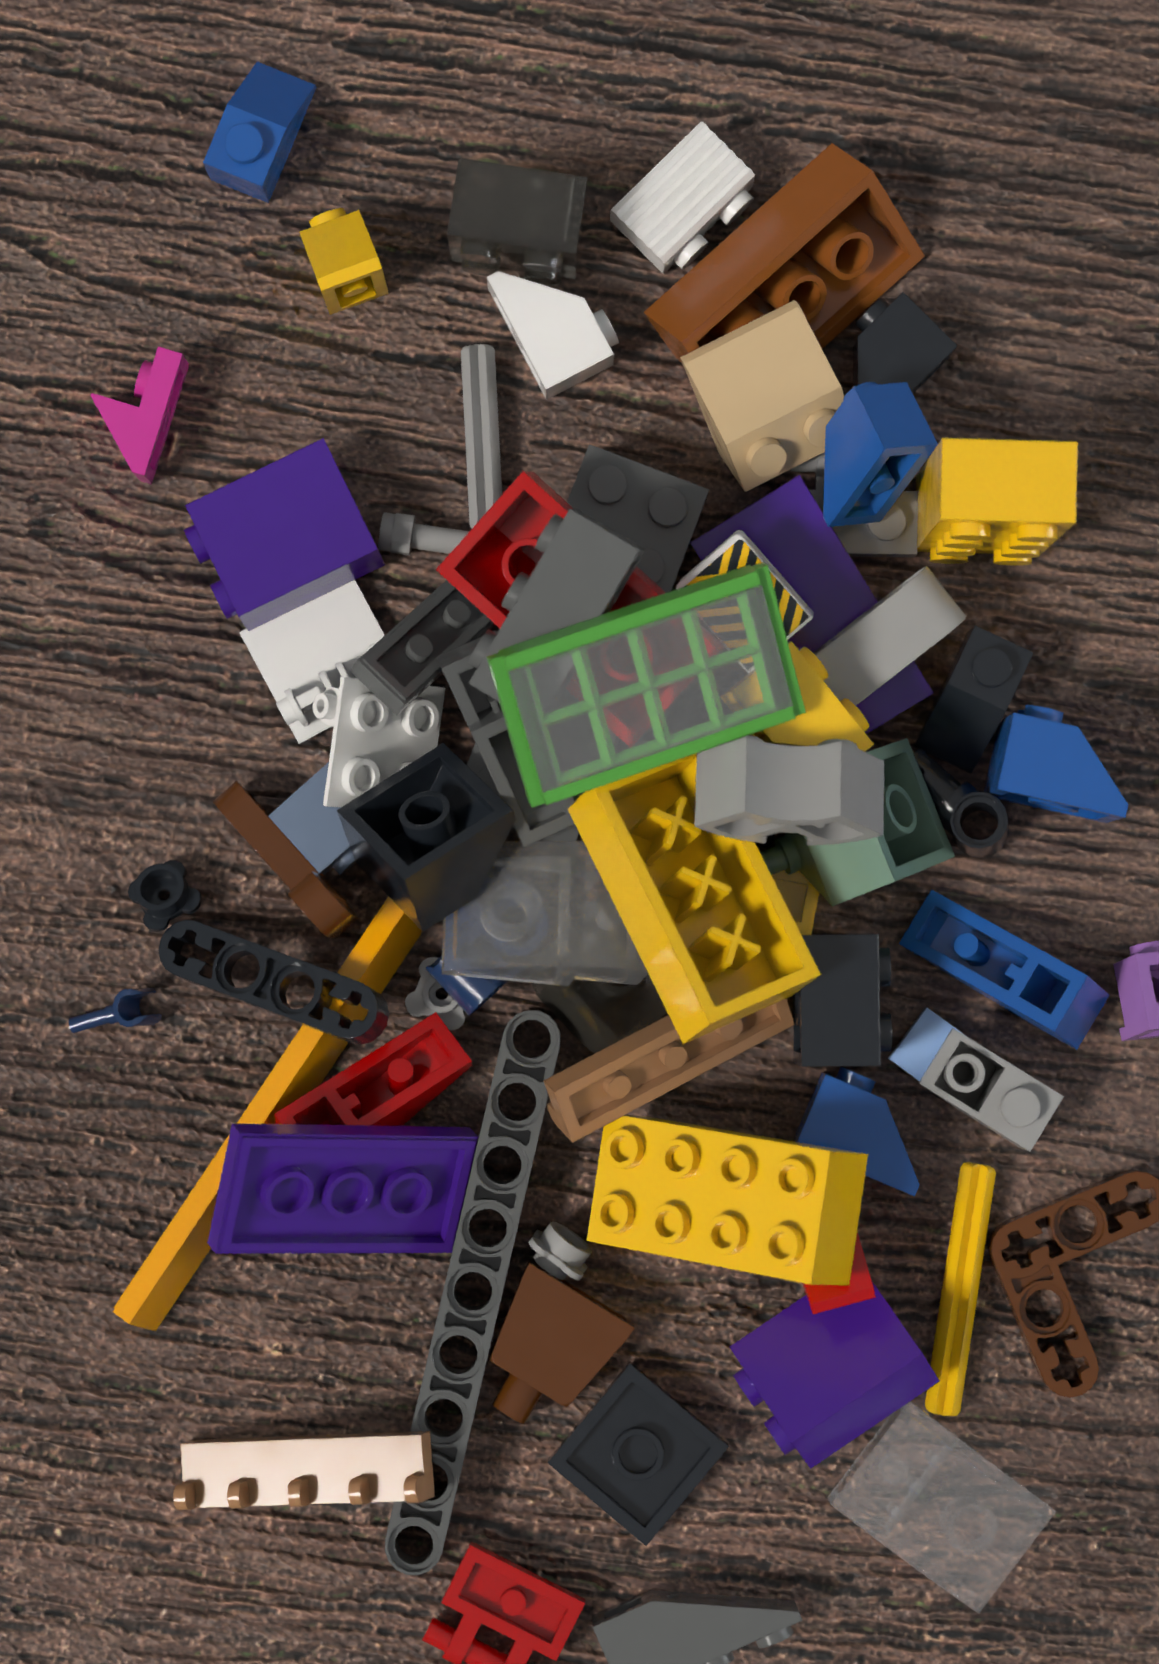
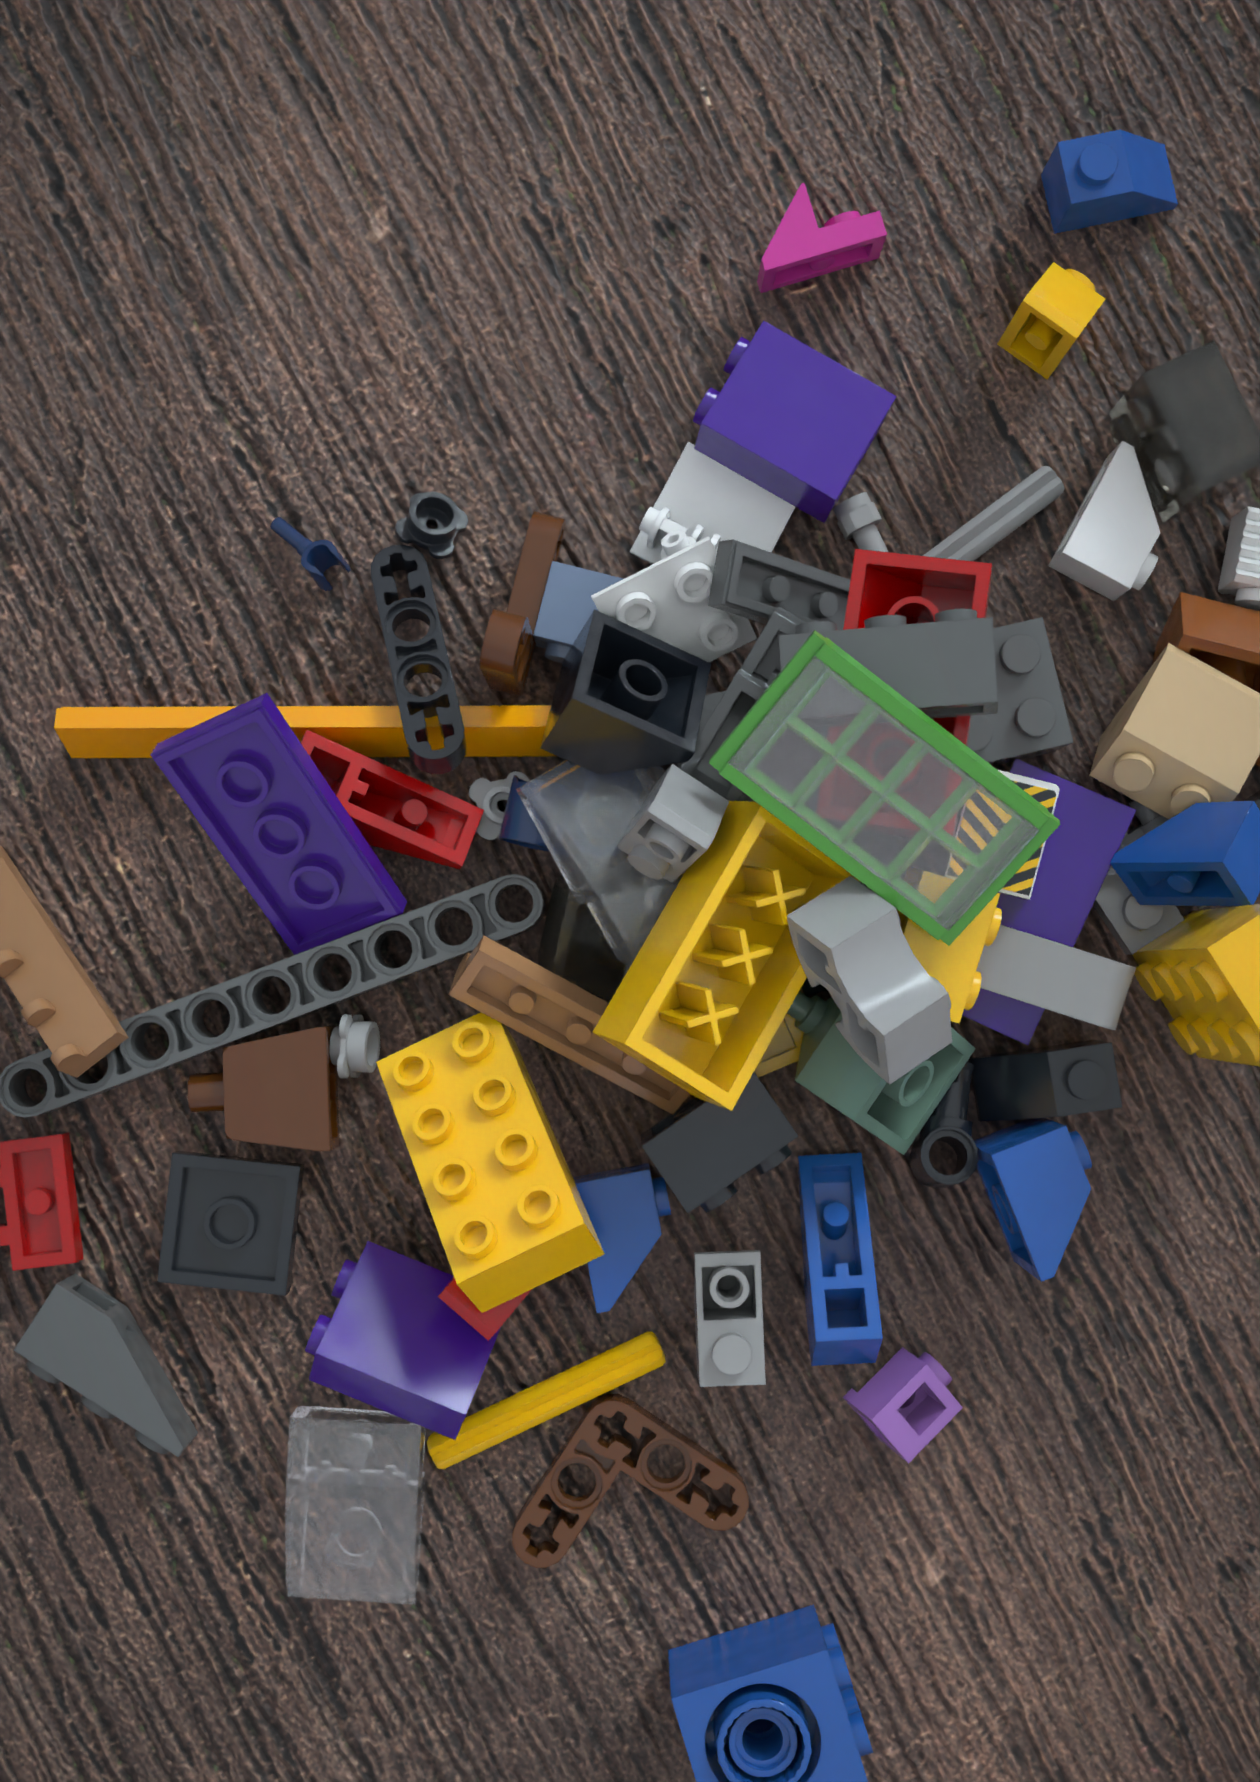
camera: 55 degrees right, 0 degrees up
(560, 867) = (673, 826): none -> light grey slope
(921, 1043) = (728, 1231): light blue tile -> none

